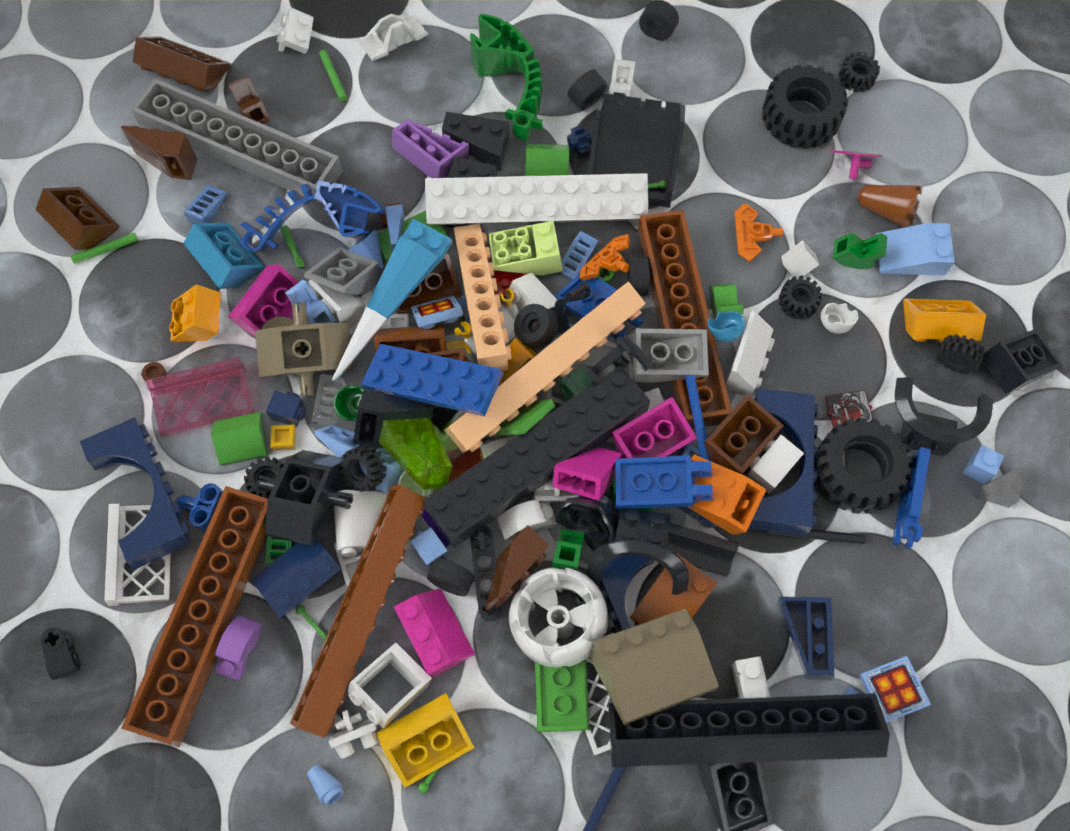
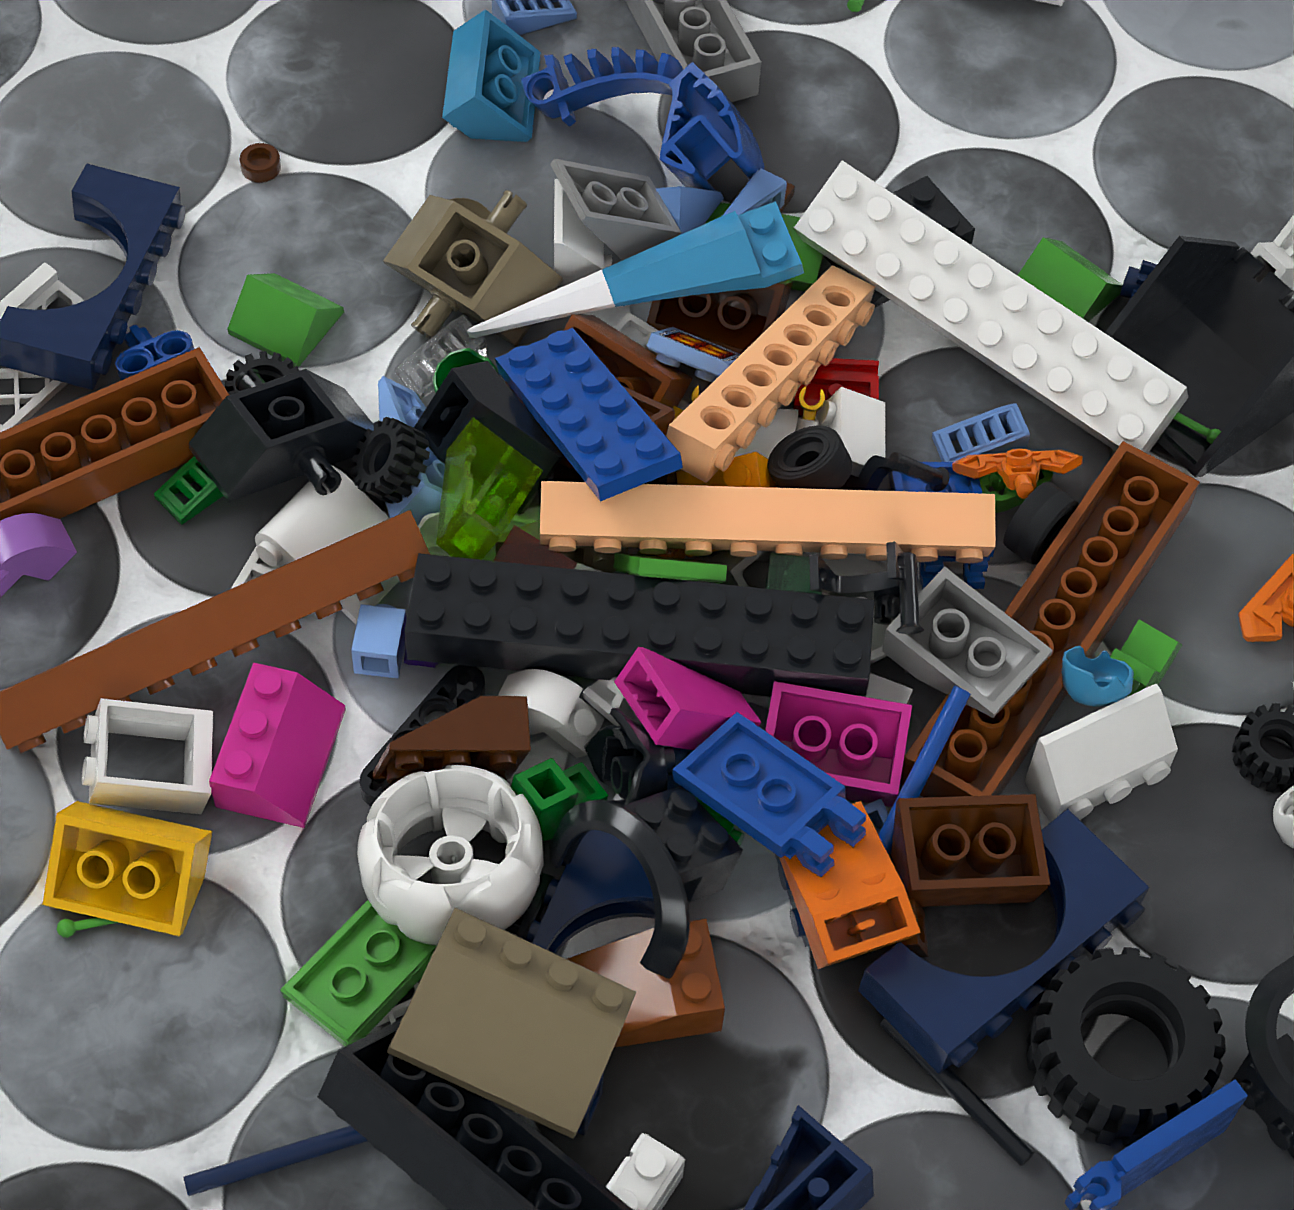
camera: 40 degrees right, 10 degrees down
(195, 315) = (380, 127): light orange slope -> none
(195, 377) = (310, 205): clear pink fence -> none
(264, 300) = (489, 170): dark pink slope -> none
(283, 437) = (338, 359): yellow tile -> none
(286, 408) = (376, 324): dark blue brick -> none
(292, 246) = (595, 132): bright green piece -> none
(295, 576) = (176, 535): dark blue slope -> none
(300, 610) = (142, 582): bright green hinge -> none
(316, 310) = (536, 222): light blue brick -> none
(342, 740) = (26, 777): white hips -> none
(426, 149) = (901, 142): medium lavender wedge -> none
(450, 577) = (366, 693): black tyre -> none
(485, 136) = (993, 179): black wedge -> none
(502, 51) = (1138, 94): green piece -> none
(526, 249) = (912, 371): yellowish green slope -> none
(587, 89) = (1228, 219): black tyre -> none
(702, 549) = (755, 956): black panel -> none
(774, 464) = (987, 932): white brick -> none
(848, 406) = (1205, 957): piece -> none

